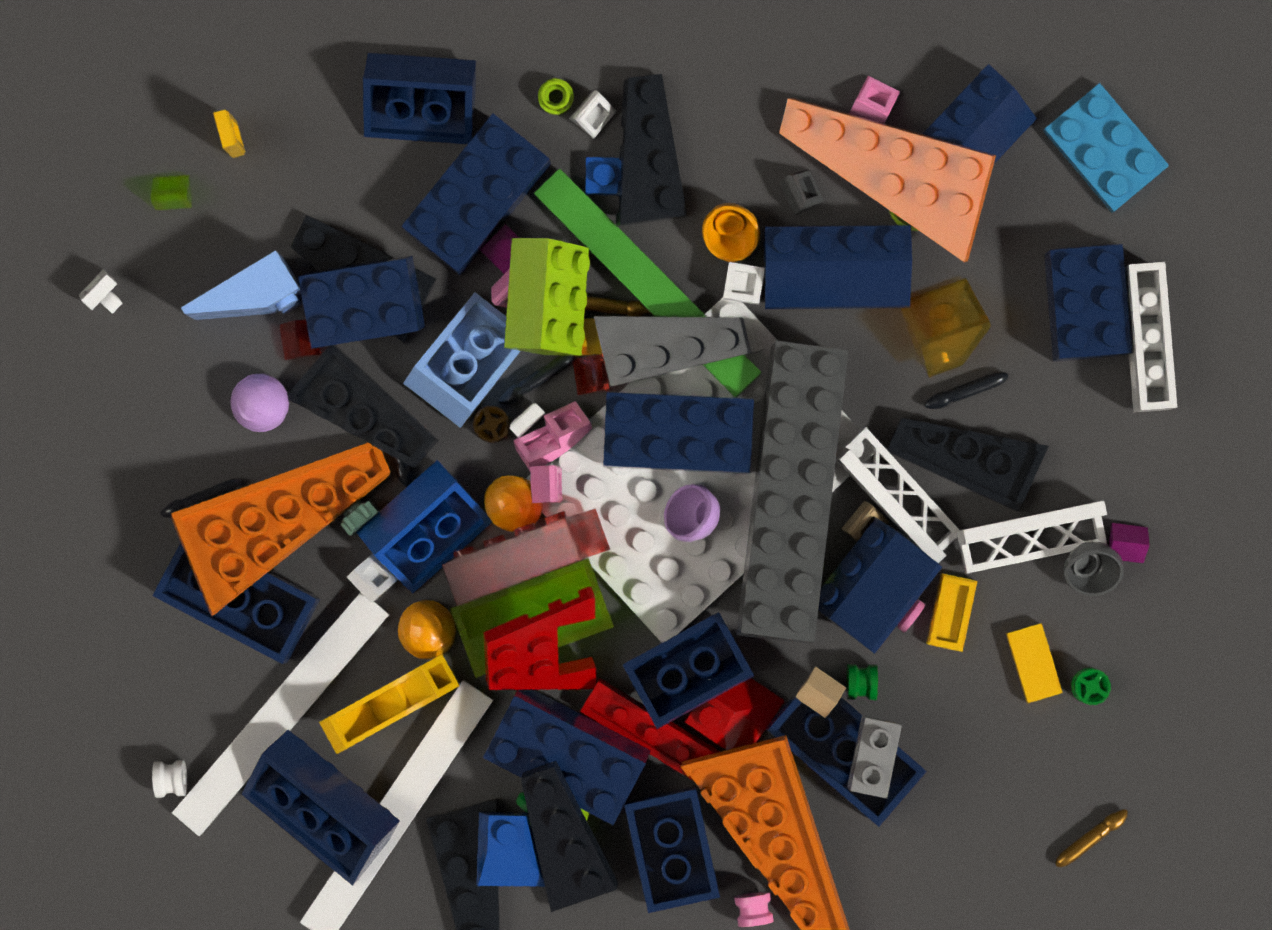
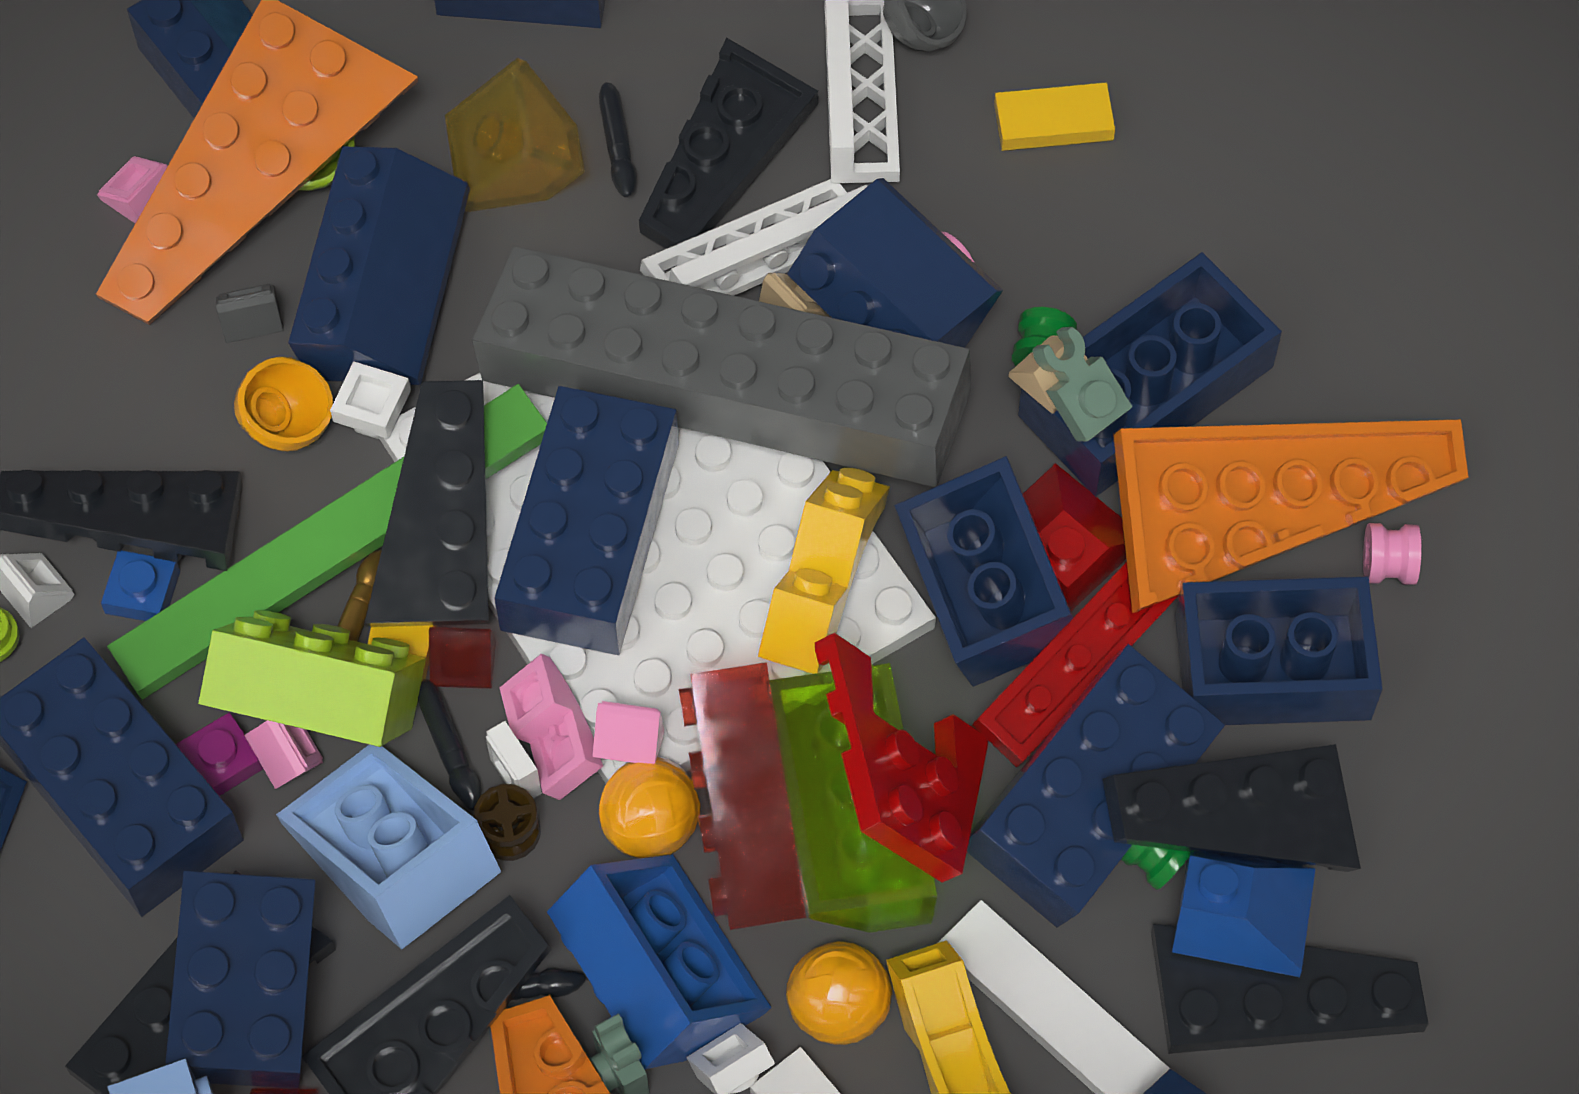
camera: 75 degrees left, 25 degrees down
(671, 578) = (822, 567): none -> yellow arch
(691, 513) = (723, 519): lavender piece -> none
(805, 713) = (1086, 390): none -> sand green plate
(874, 756) = (1168, 302): light grey brick -> none
(951, 612) = (967, 213): yellow tile -> none
(1091, 838) = (1334, 84): pearl gold piece -> none
(1096, 689) = (1098, 32): green wheel -> none

